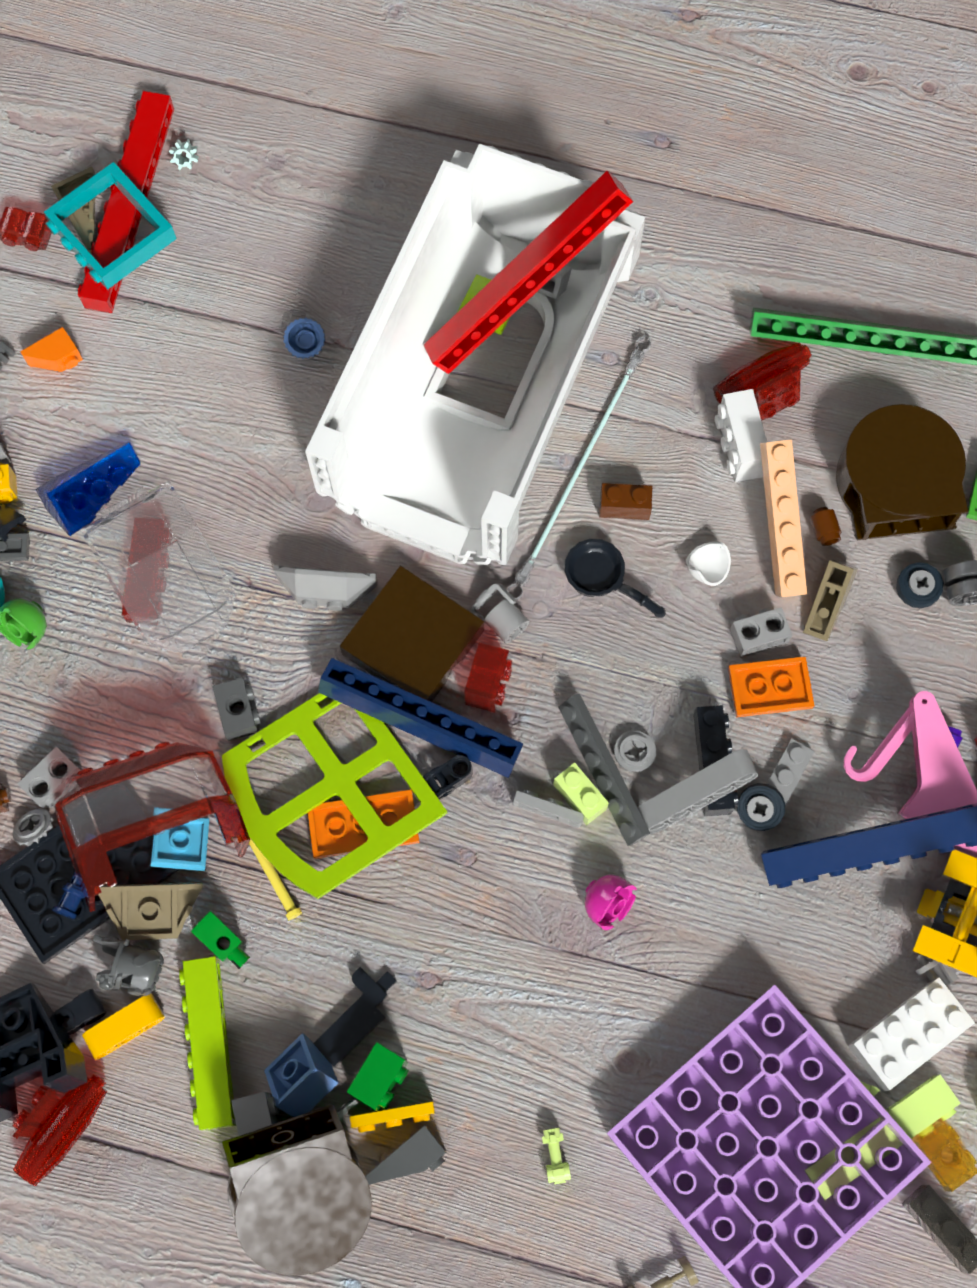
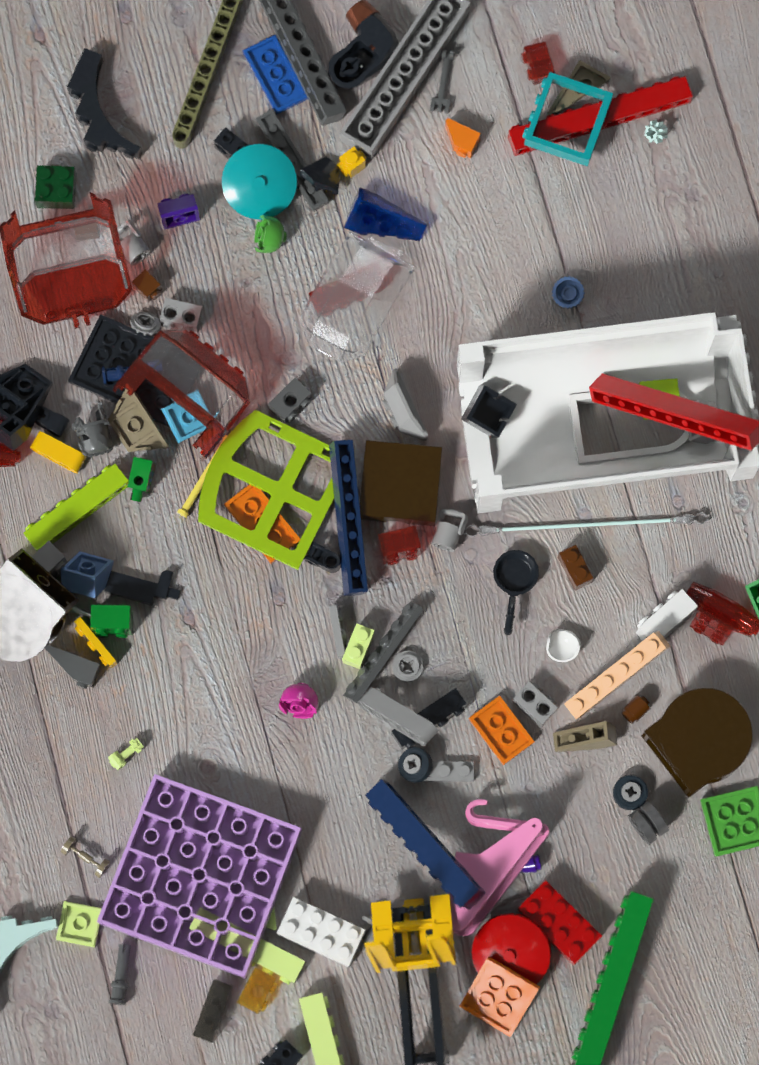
camera: 60 degrees right, 5 degrees up
(389, 492) = (486, 411): none -> black piece

